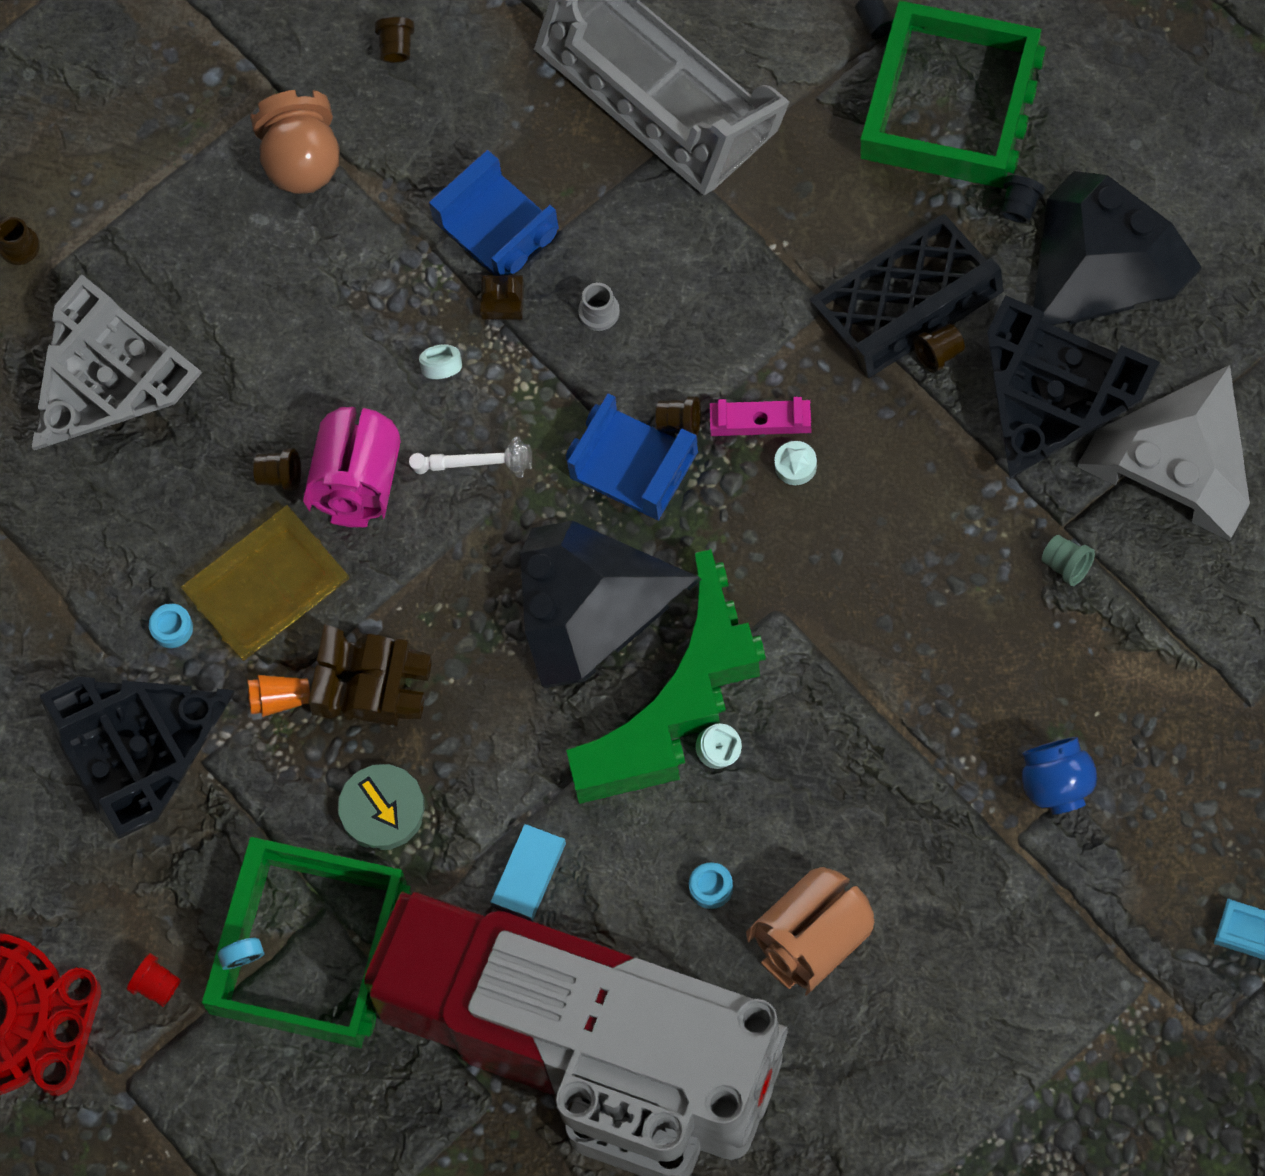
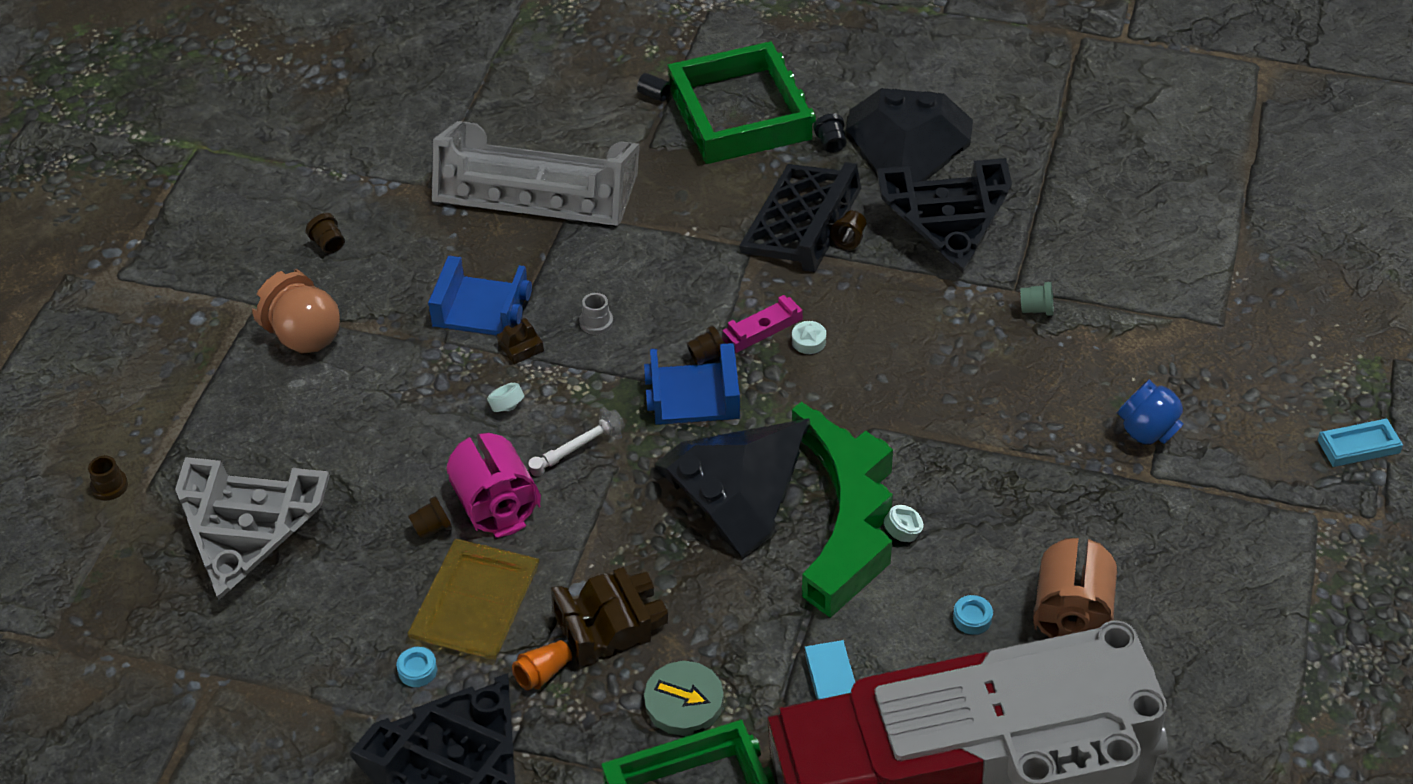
camera: 40 degrees left, 20 degrees down
(1182, 449) = (1048, 206): light grey wedge -> none

